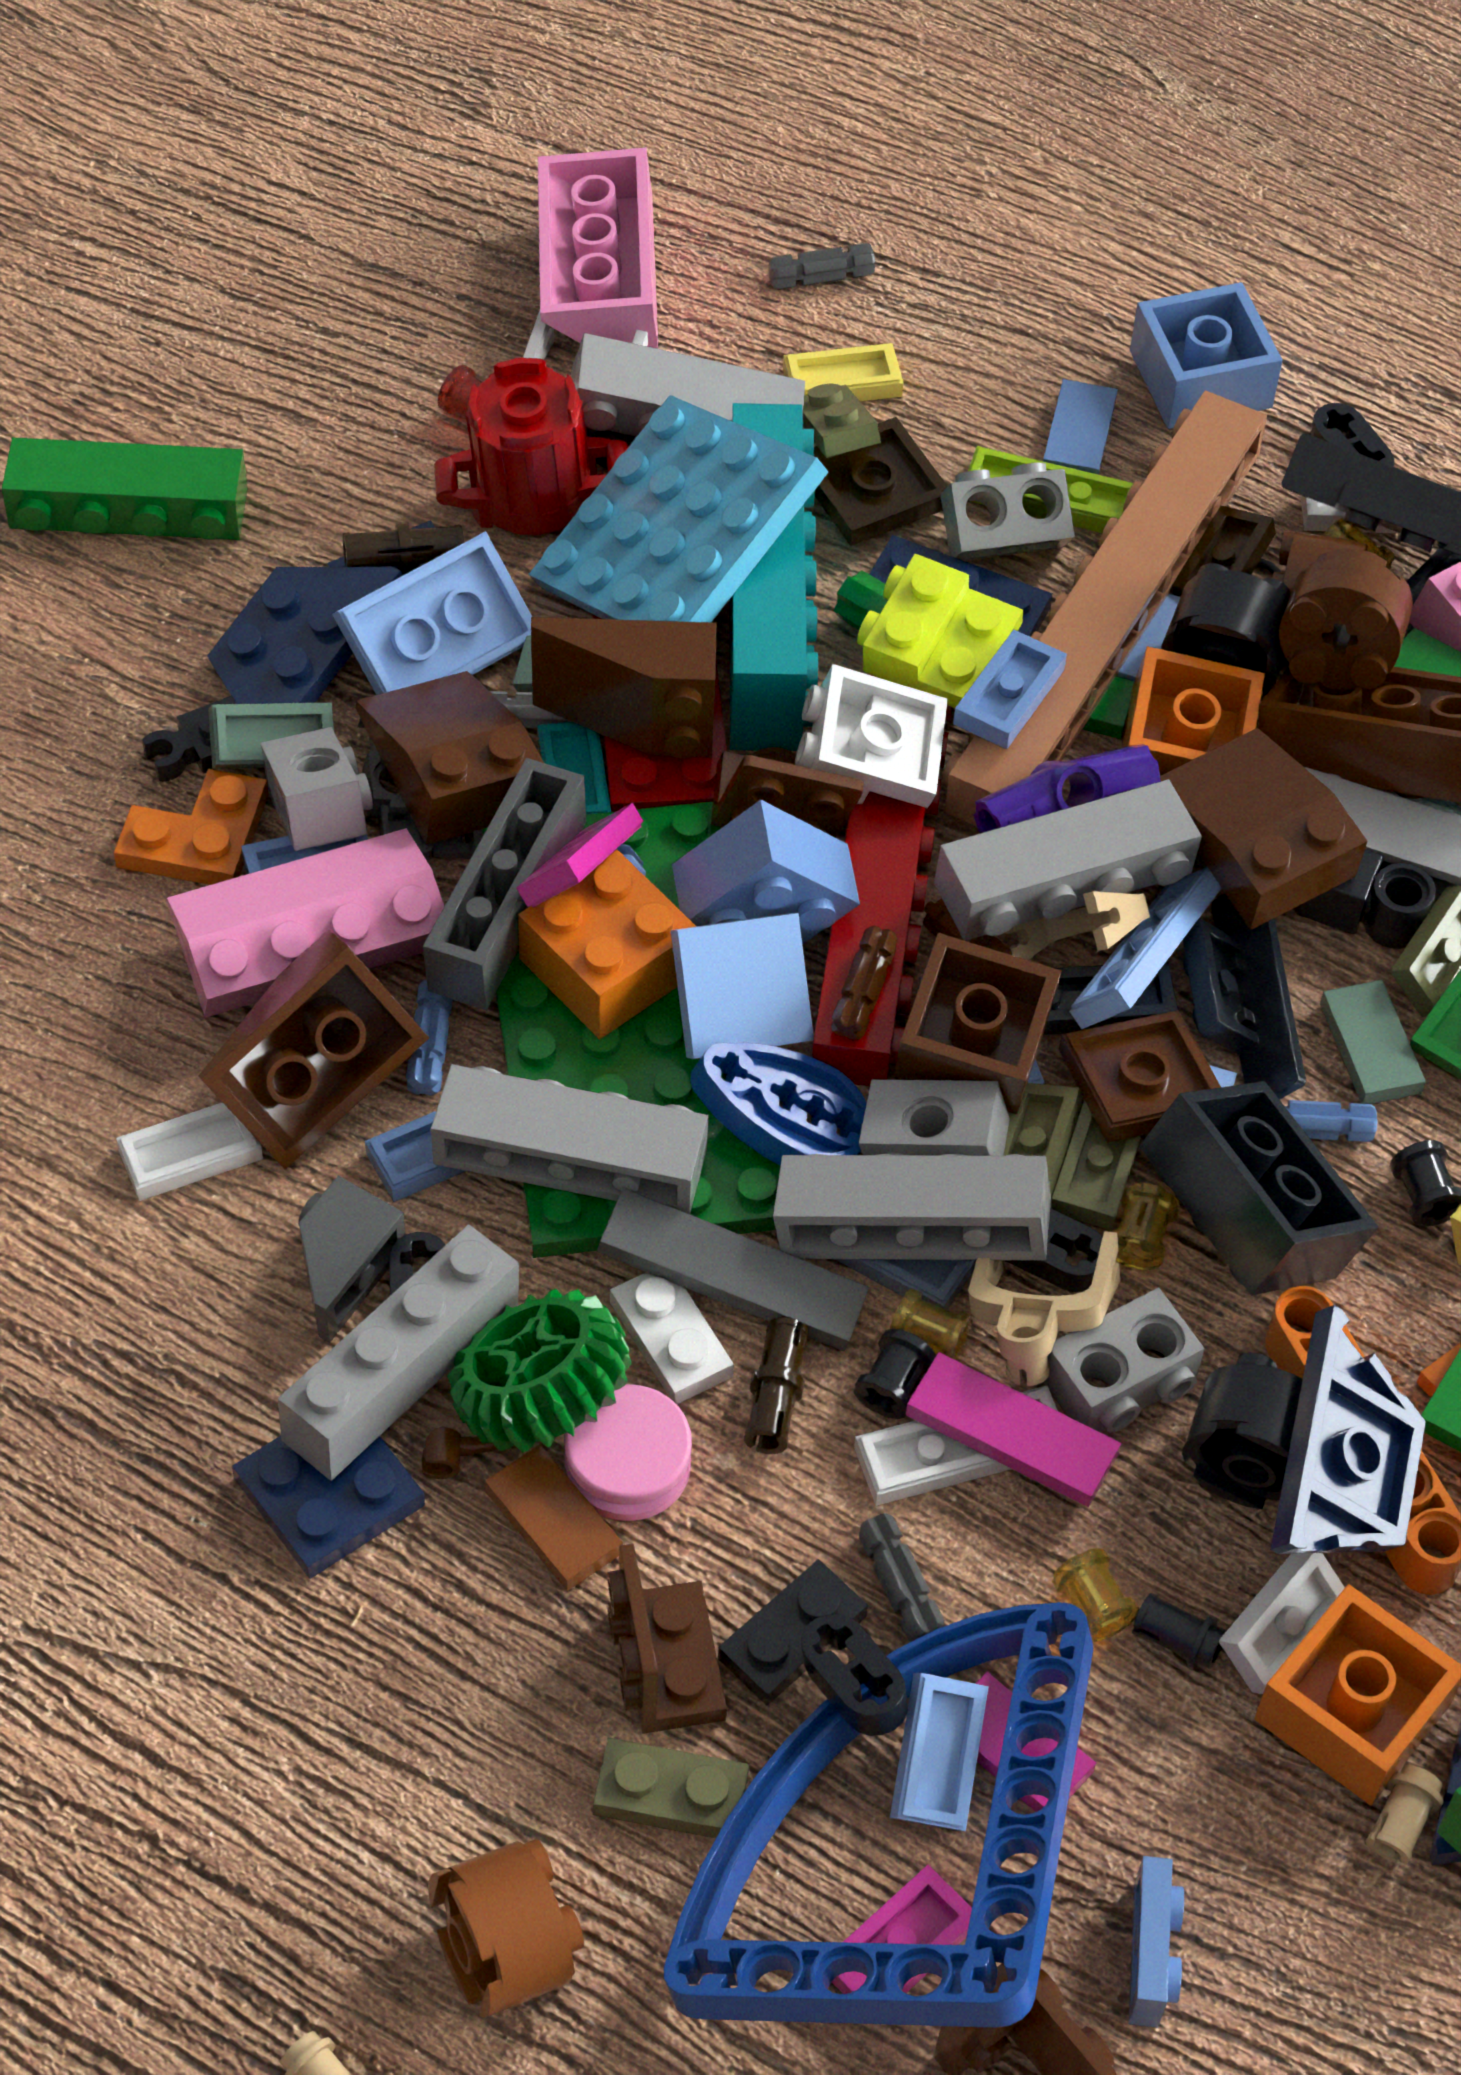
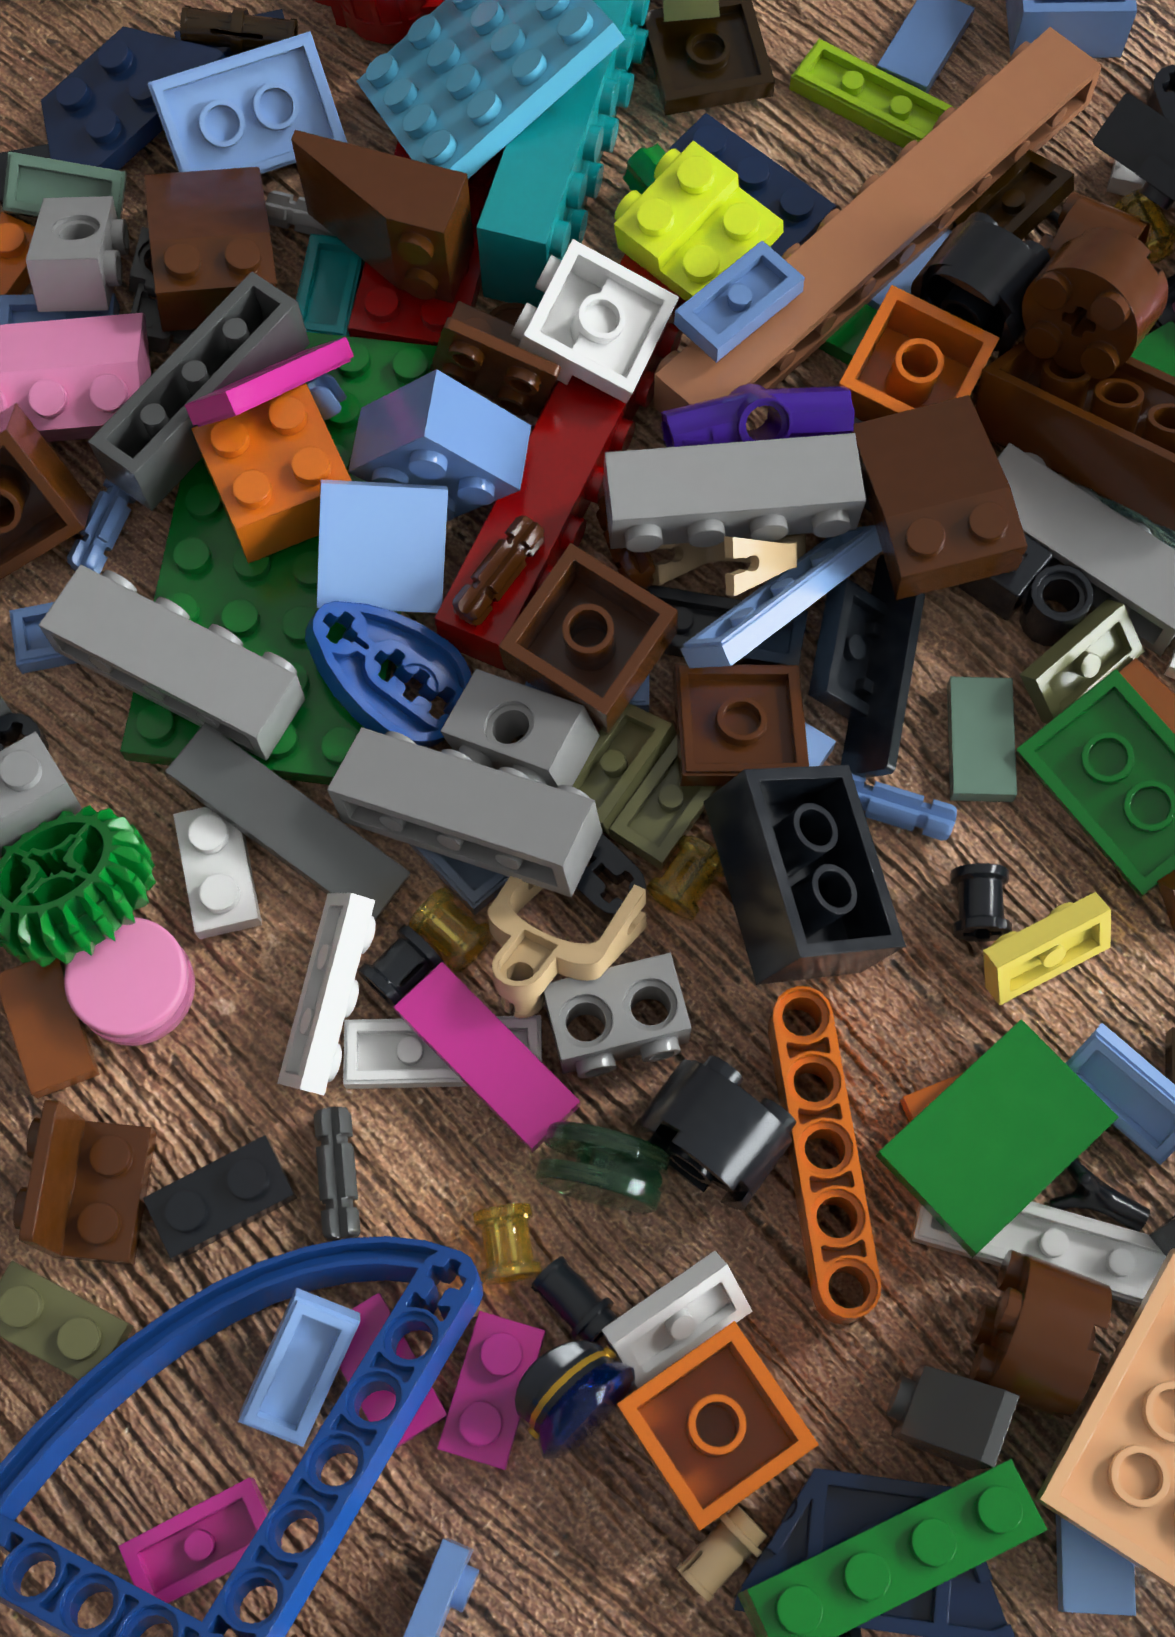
camera: 20 degrees right, 15 degrees up
(776, 1386) = (287, 952): dark brown pin -> none
(835, 1408) = (328, 992): none -> white plate
(865, 1665) = (226, 1274): black beam -> none
(1010, 526) = (817, 132): light grey brick -> none
(1128, 1735) = (483, 1408): none -> dark pink plate
(1166, 1495) = (608, 1168): none -> clear green head
(1215, 1700) = (571, 1394): none -> piece
(1348, 1452) = (776, 1191): wing -> none

